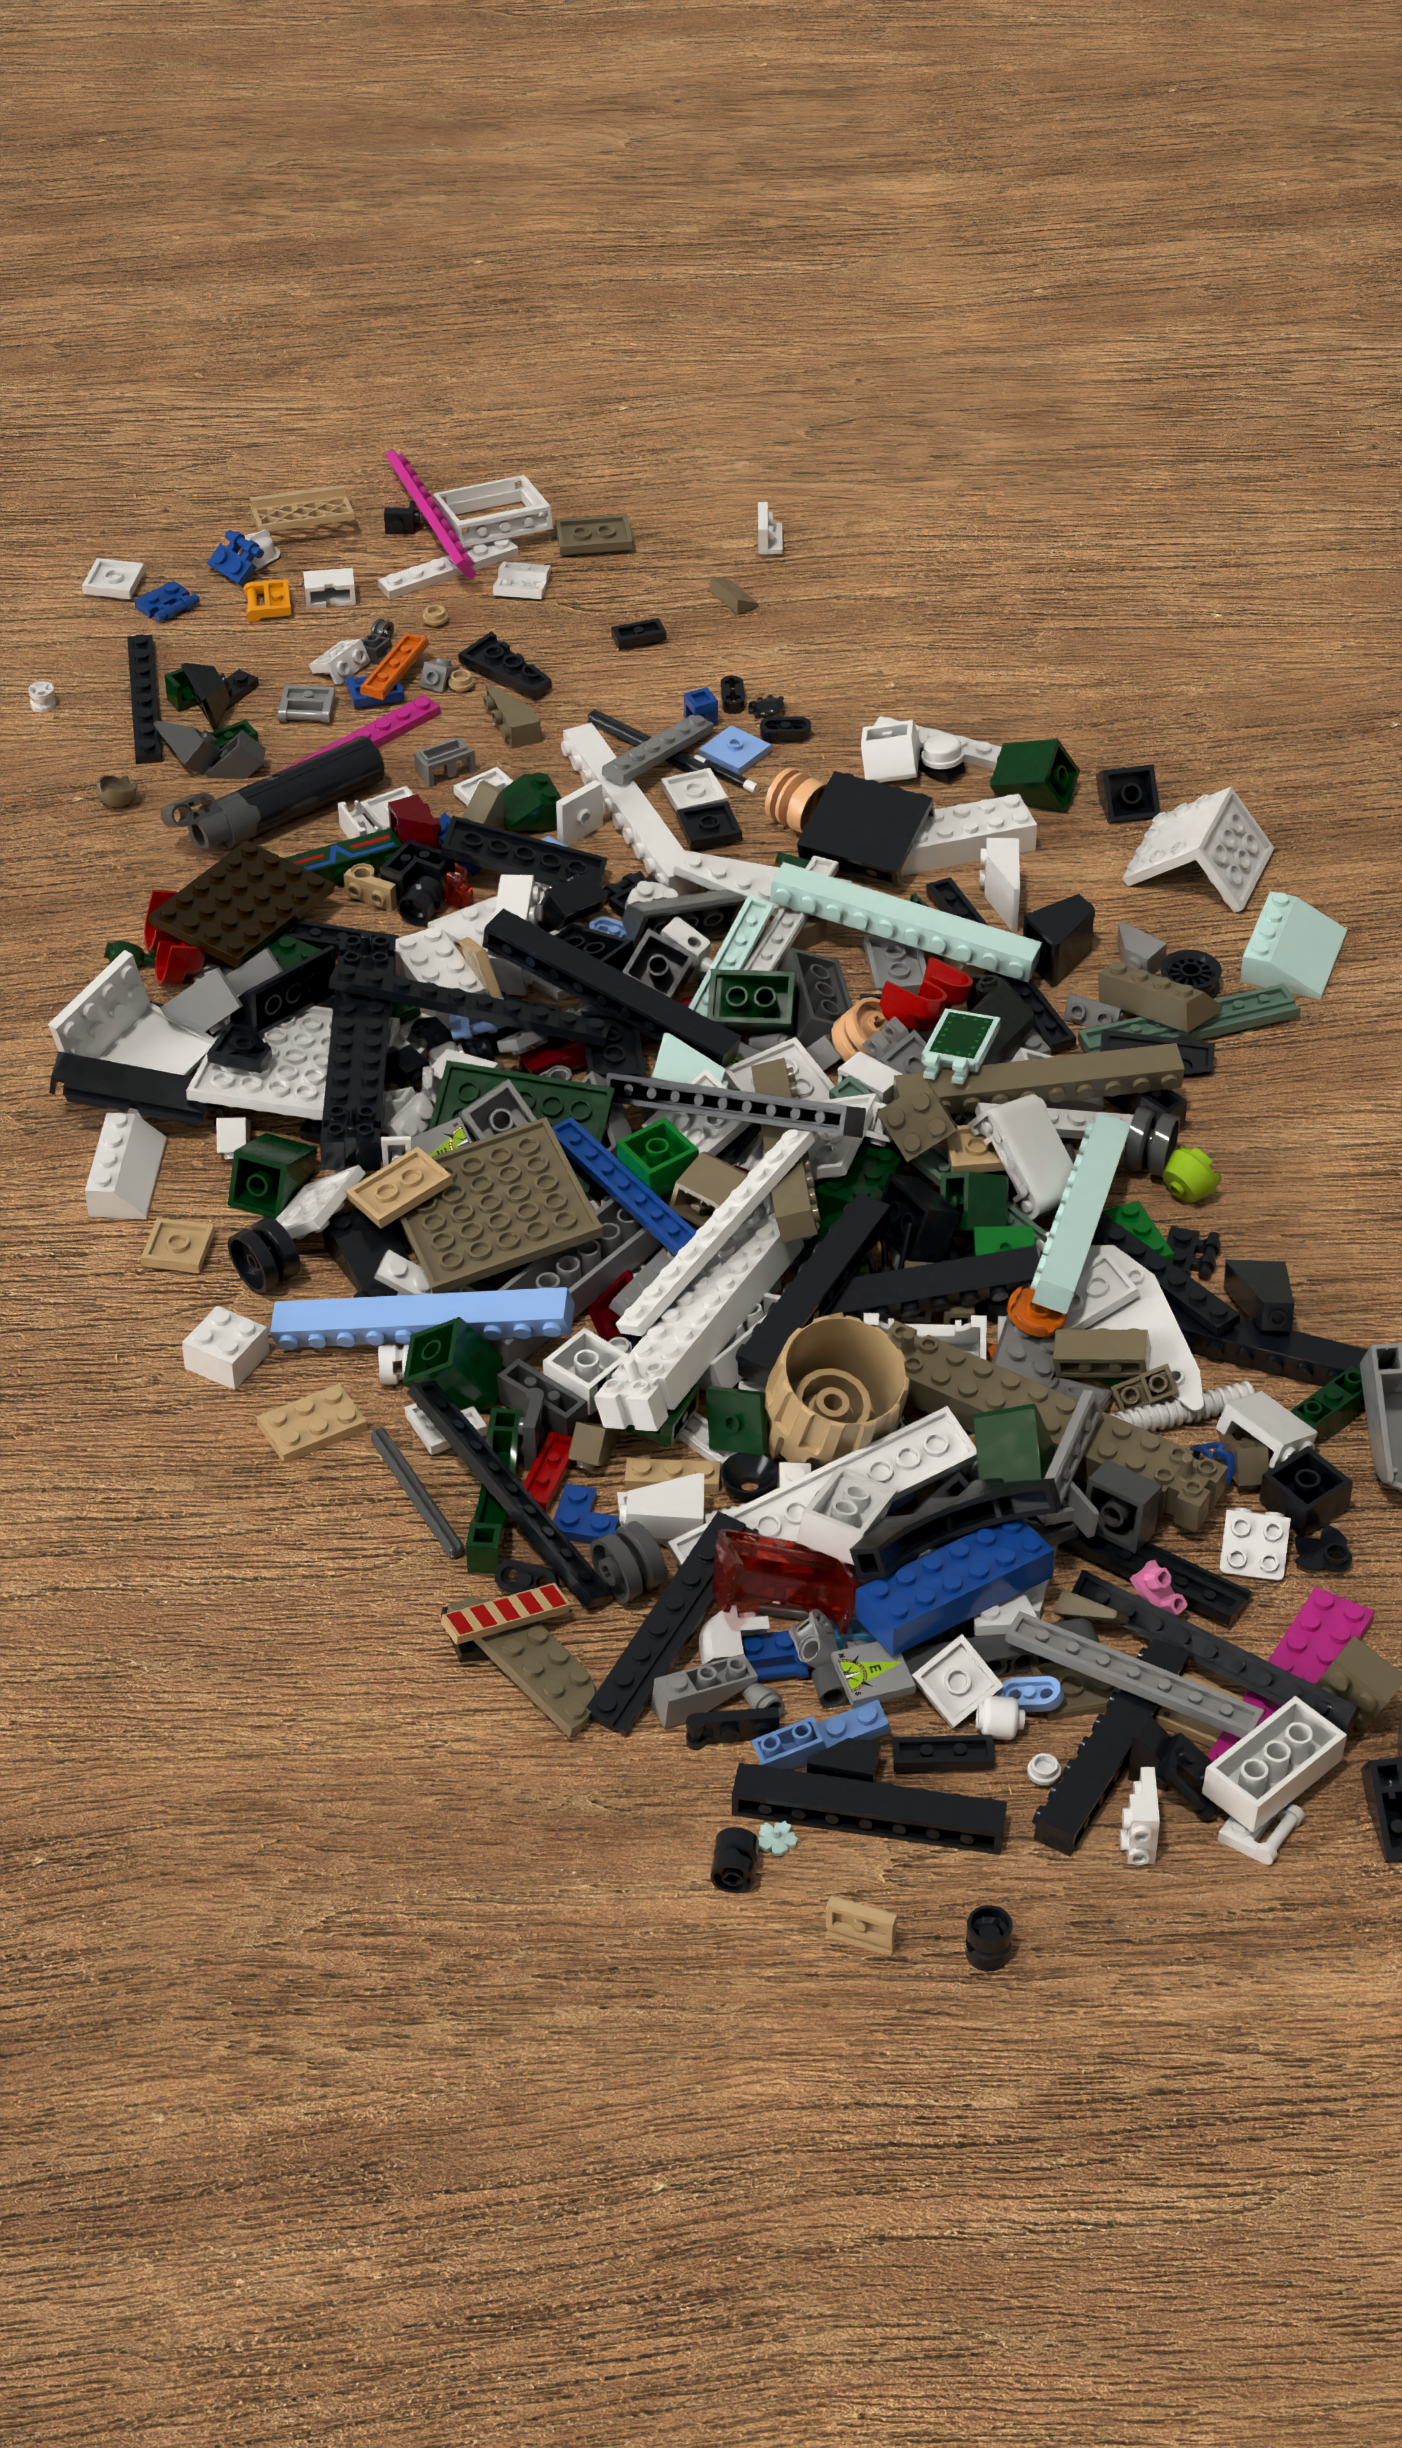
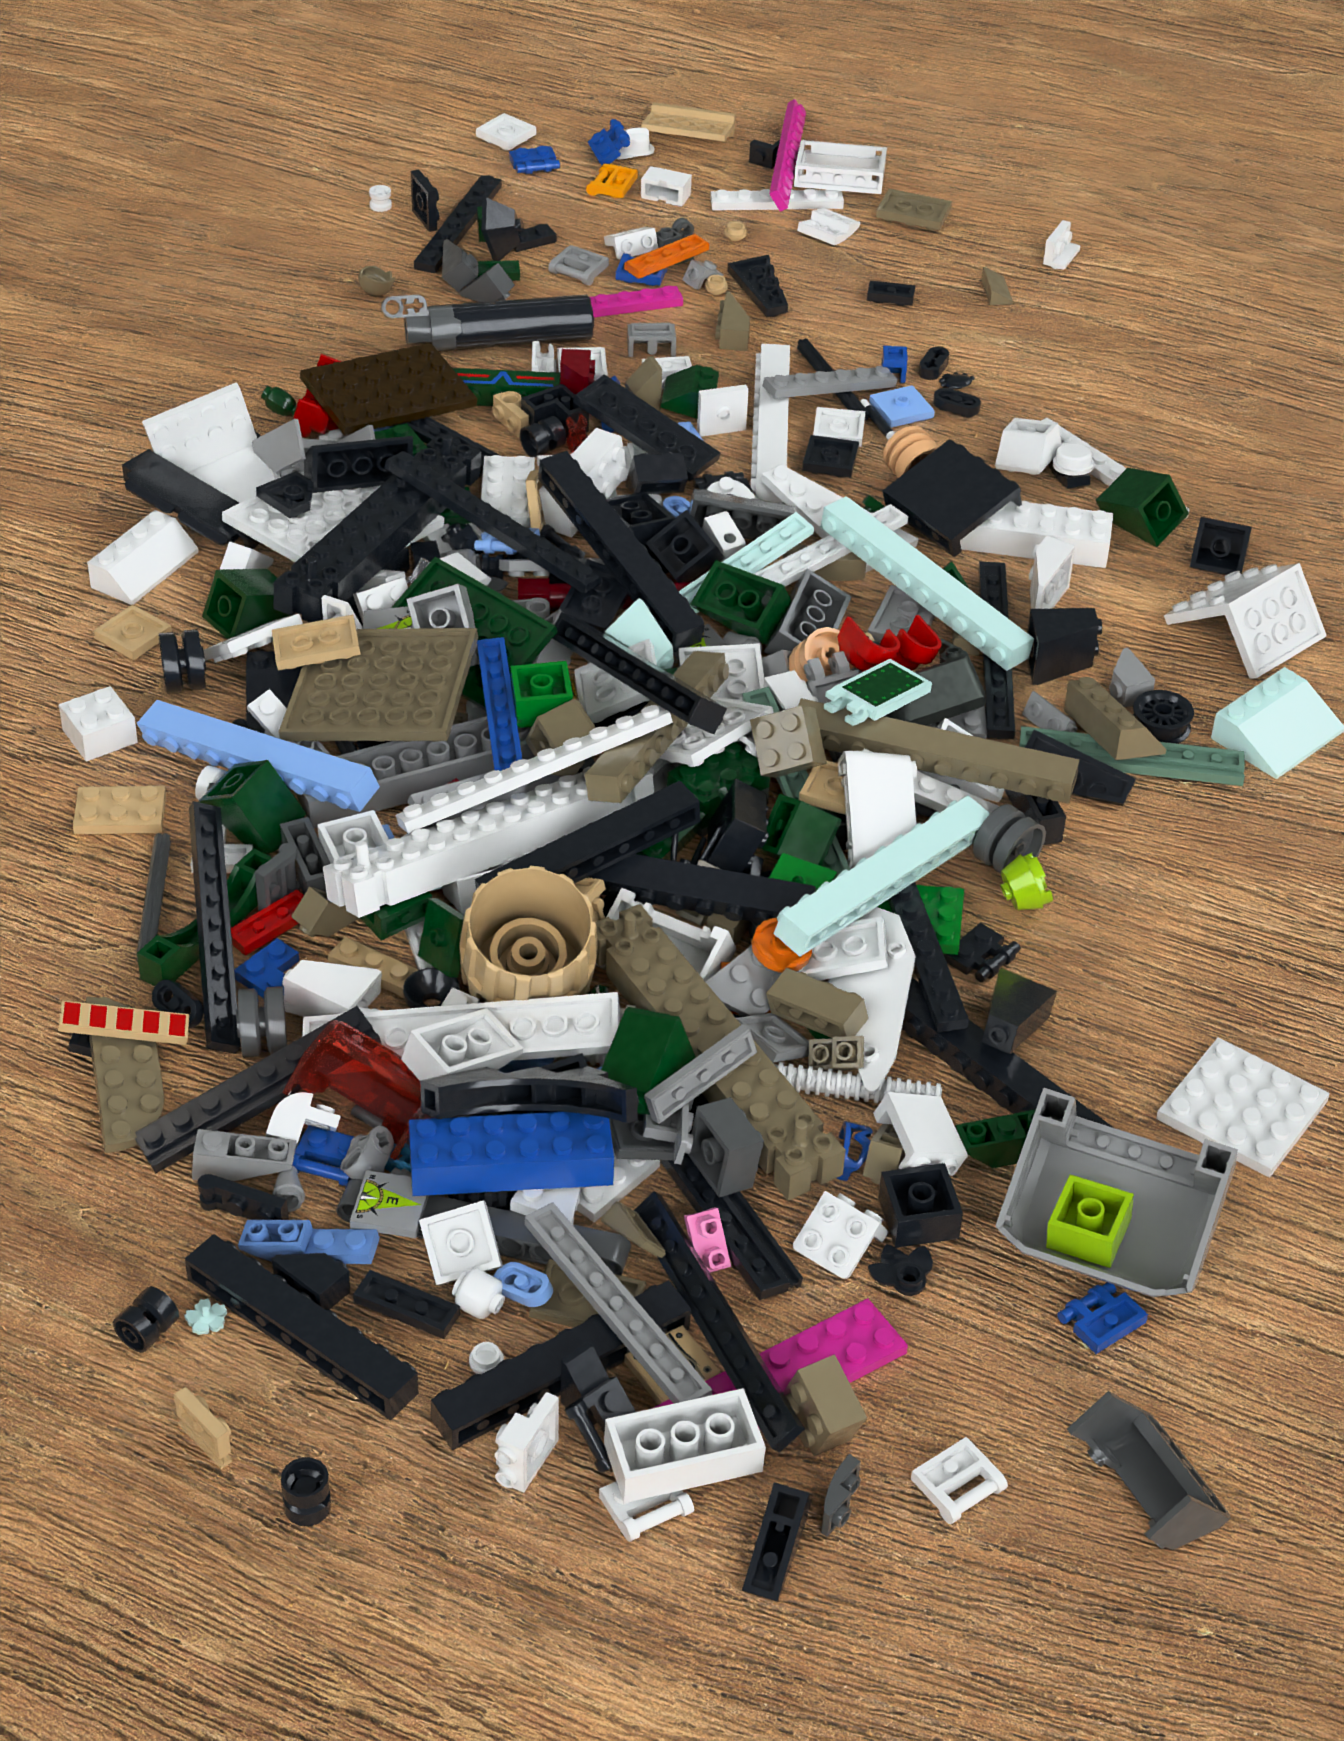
camera: 25 degrees right, 0 degrees up
(100, 685) = (424, 200): none -> black plate

